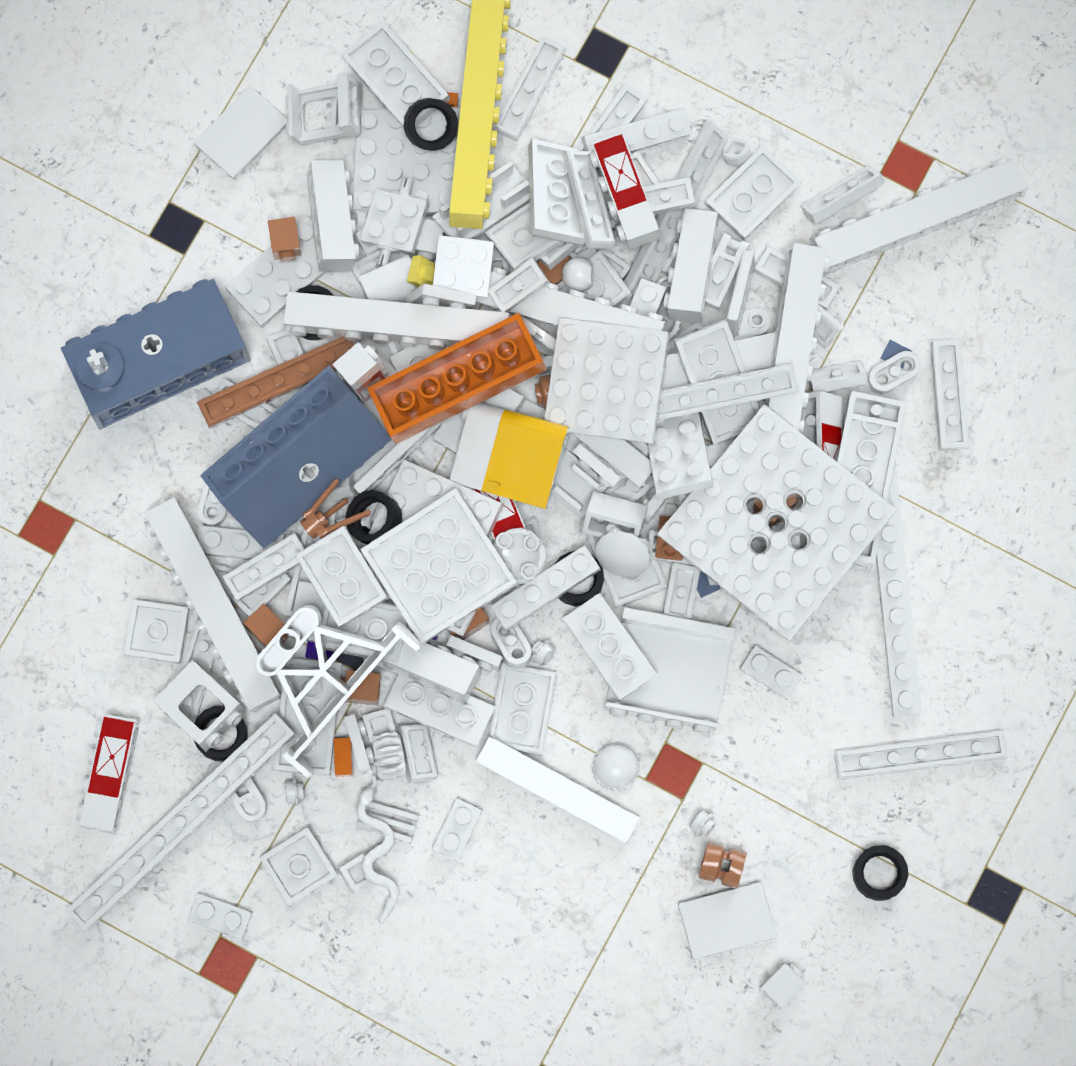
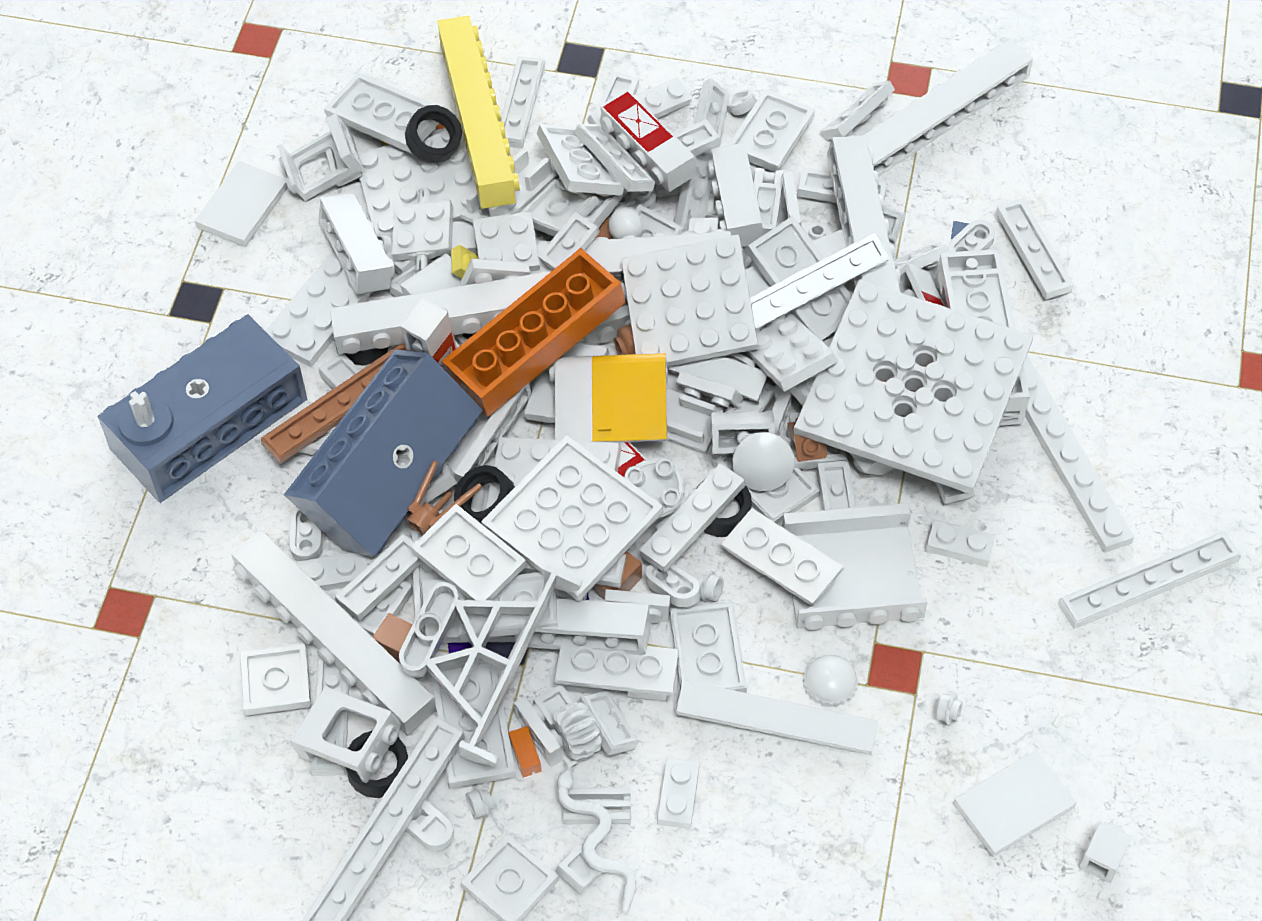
camera: 15 degrees left, 20 degrees down
(108, 773) = (258, 842): white brick -> none
(284, 239) = (312, 271): nougat brick -> none
(367, 691) = (530, 675): nougat brick -> none
(704, 587) = (860, 480): sand blue sticker -> none
(712, 863) = (976, 740): nougat wheel -> none
(895, 857) = (1167, 683): black tyre -> none

